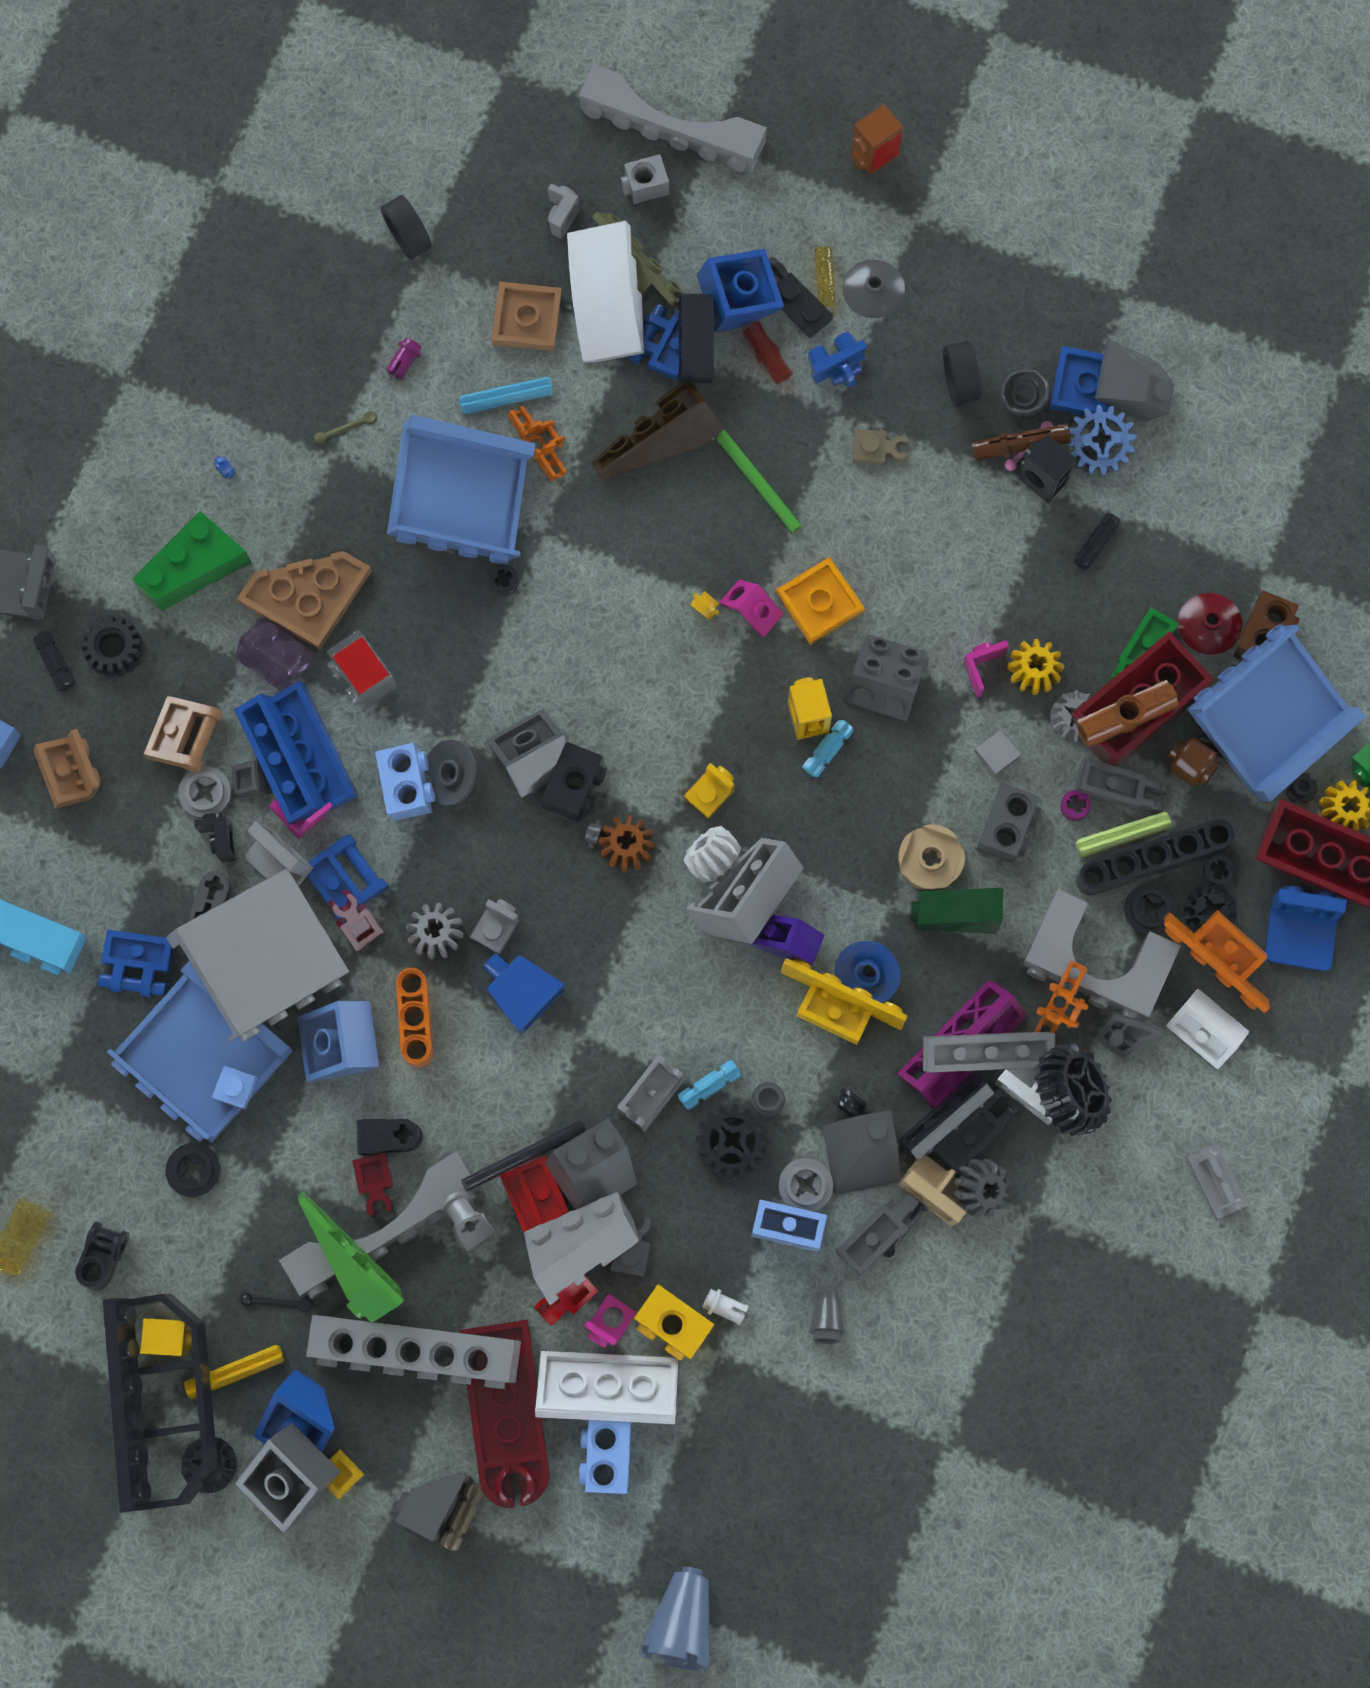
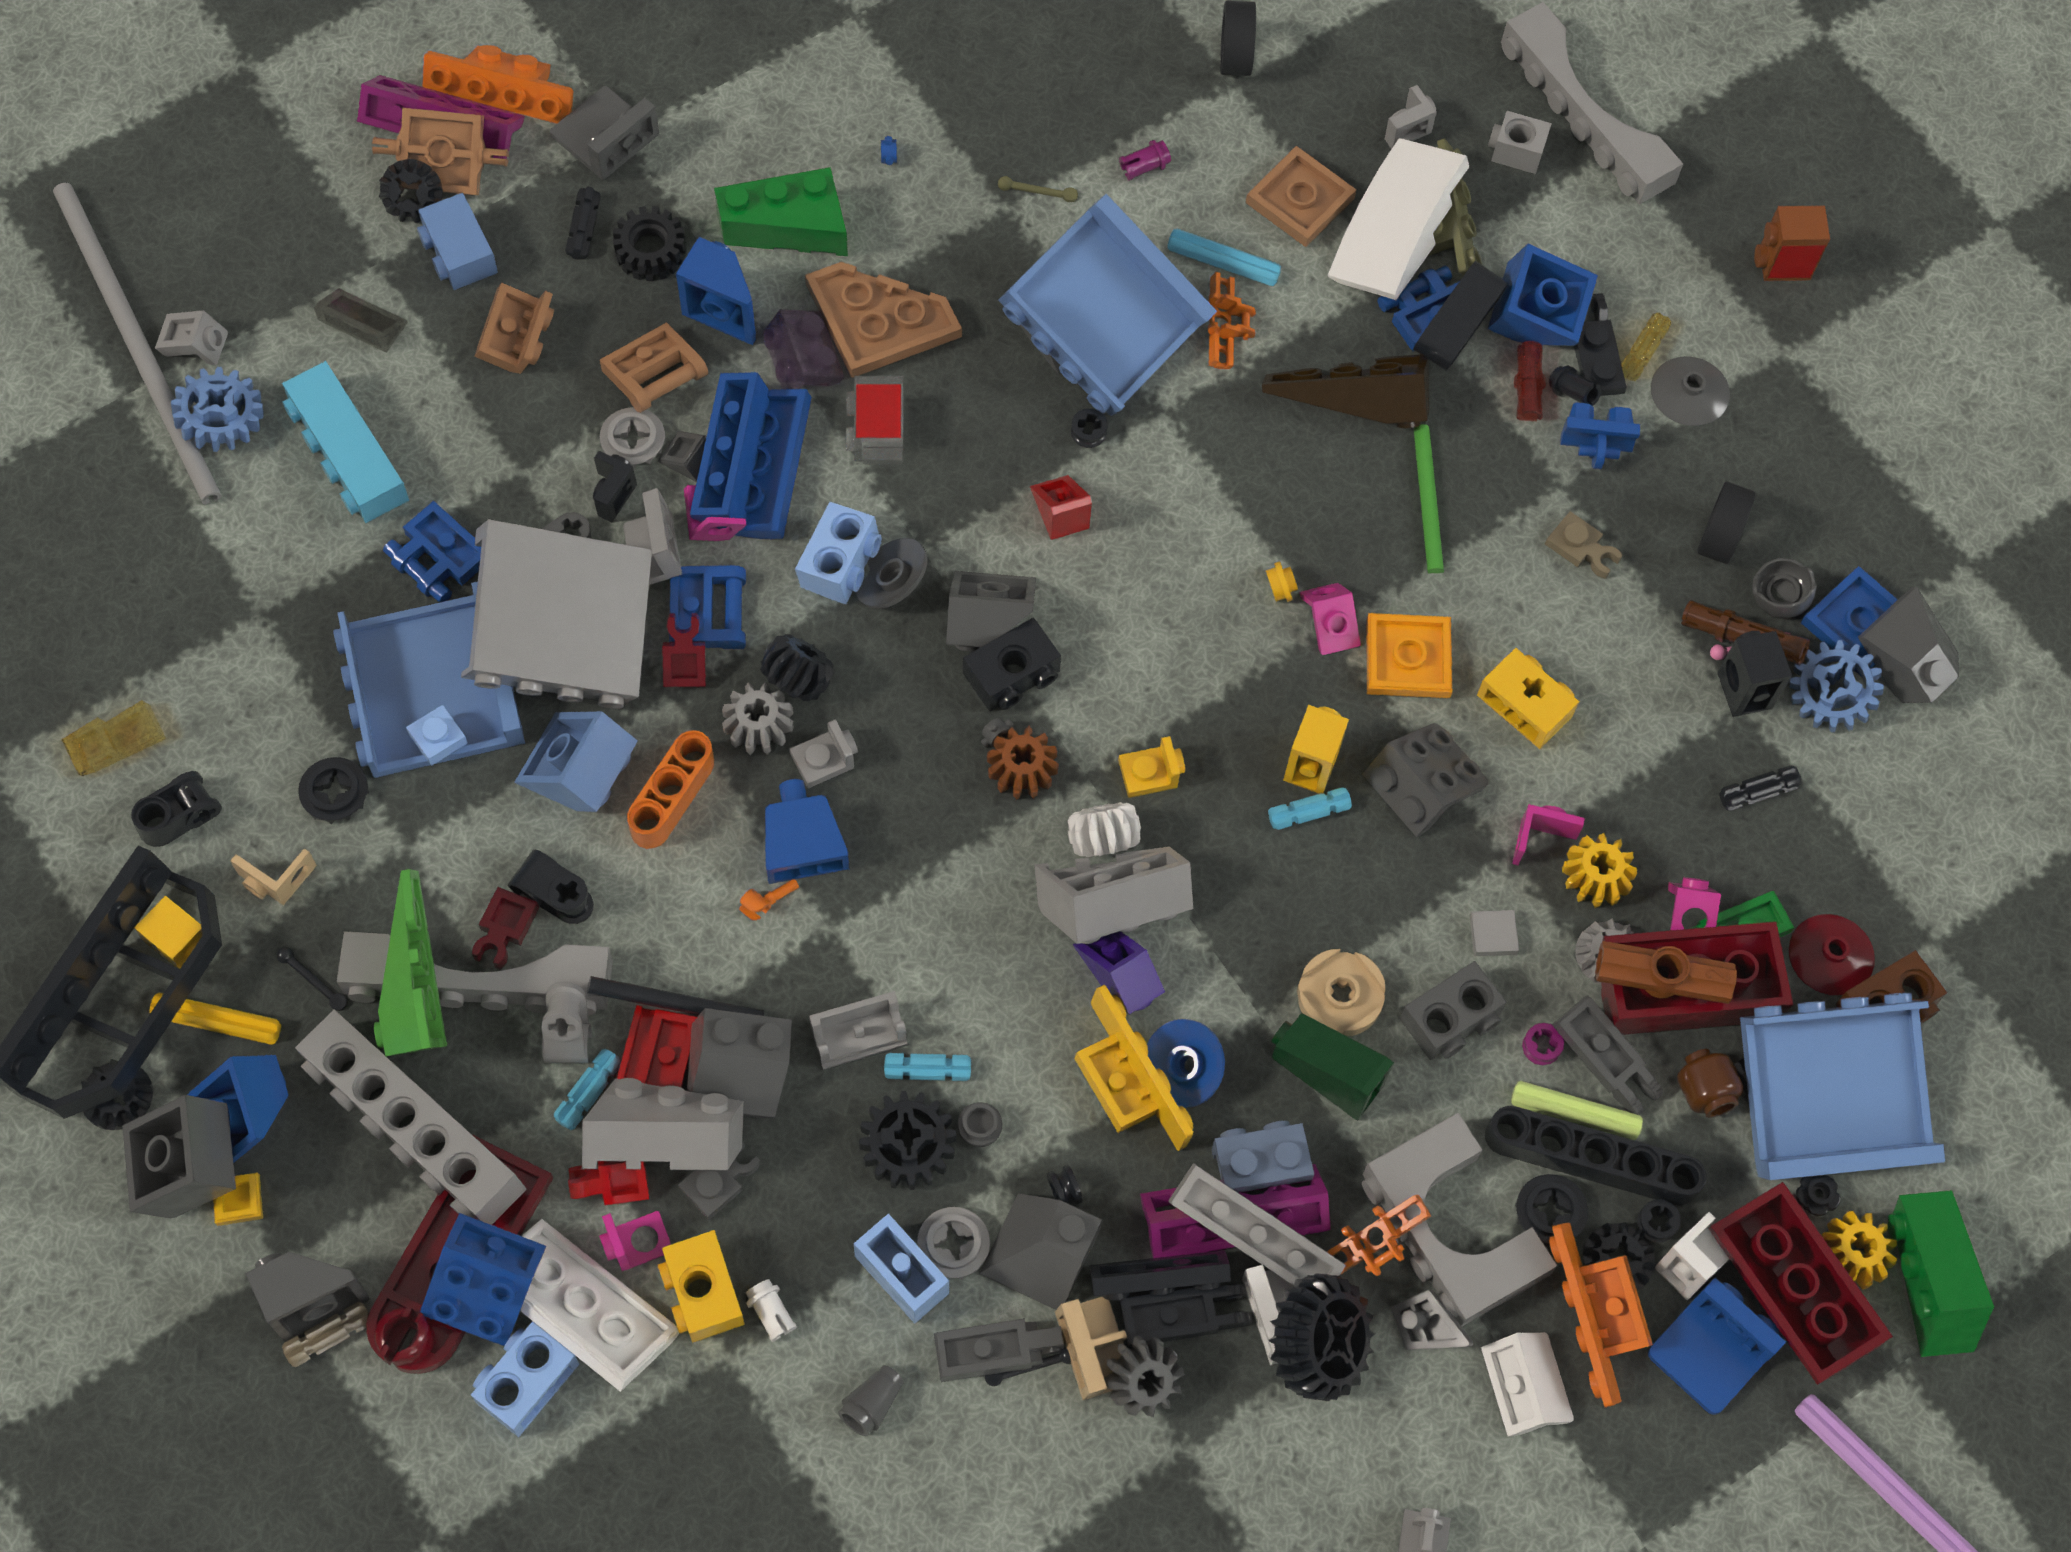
camera: 30 degrees right, 10 degrees down
(189, 652) = (716, 290): none -> blue slope
(198, 1266) = (280, 890): none -> tan bracket
(437, 880) = (797, 667): none -> black gear
(507, 1249) = (587, 1089): none -> medium azure axle
(524, 1055) = (754, 902): none -> orange hand
(525, 647) = (1063, 506): none -> red slope
(540, 1416) = (482, 1279): none -> blue bracket
(799, 337) = (1569, 383): none -> black pin
(898, 582) = (1534, 717): none -> yellow brick
(958, 1000) = (1263, 1157): none -> sand blue bracket
(1104, 645) = (1694, 894): none -> dark pink bracket
(1257, 883) = (1693, 1259): none -> white panel

